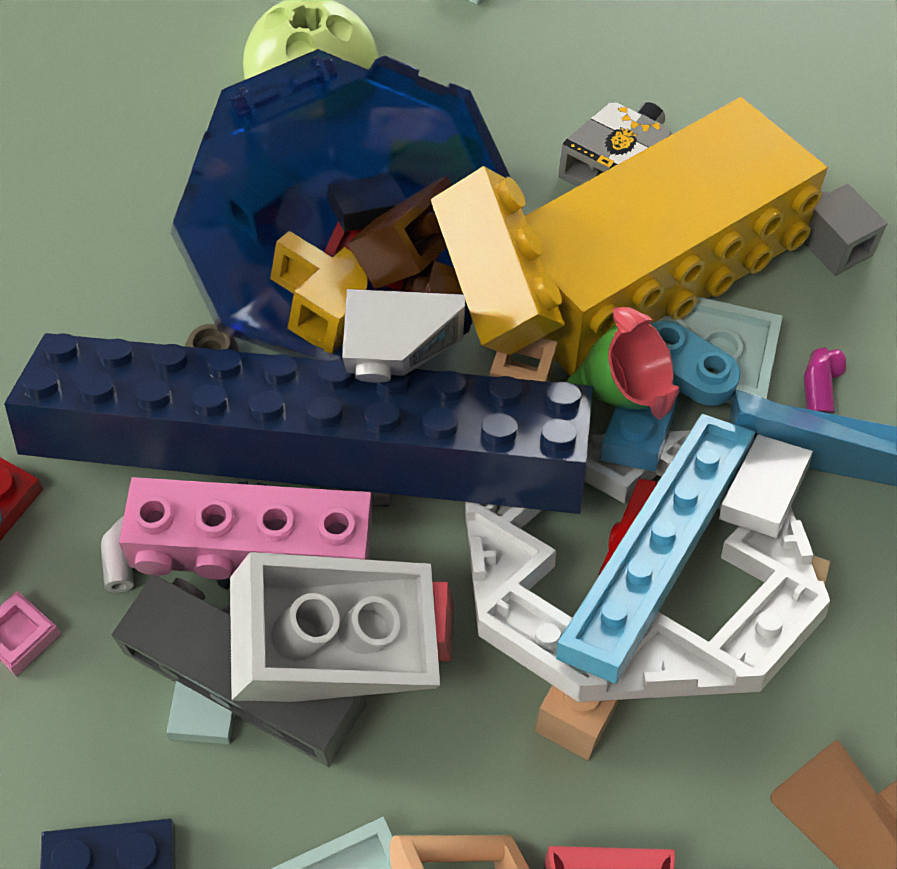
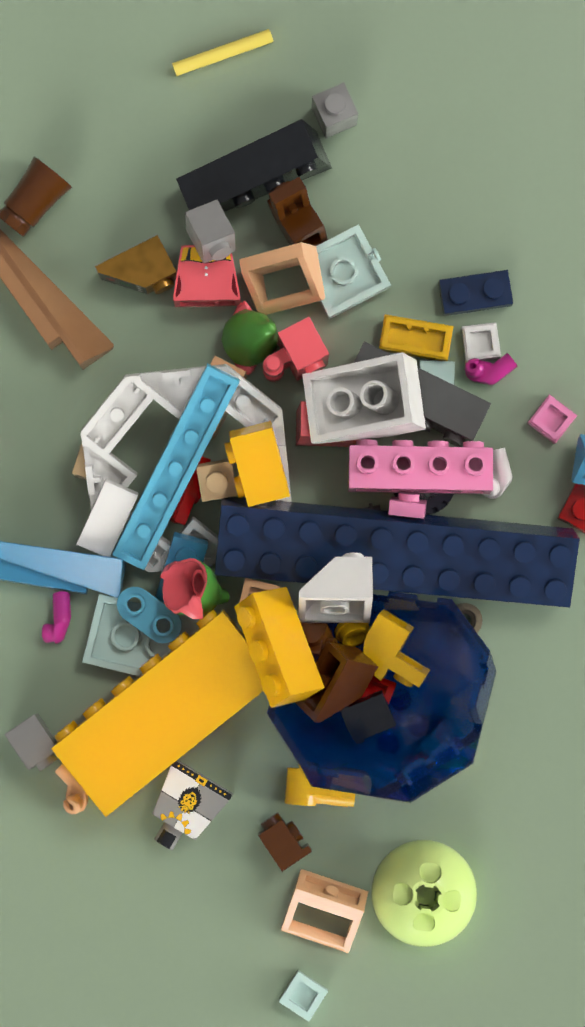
camera: 175 degrees right, 25 degrees up
(107, 713) = (487, 372): none -> dark pink arm
(114, 769) = (481, 341): none -> white tile
(229, 776) = (416, 338): none -> yellow plate
(276, 466) = (407, 505): none -> bright pink plate
(441, 47) = (330, 897): none -> light nougat tile
(442, 742) = (299, 349): none -> coral brick
(499, 103) = (283, 841): none -> reddish brown brick
(524, 529) = (258, 464): none -> yellow brick
(529, 789) = (249, 337): none -> bright green hat
(589, 525) = (216, 480): none -> tan plate

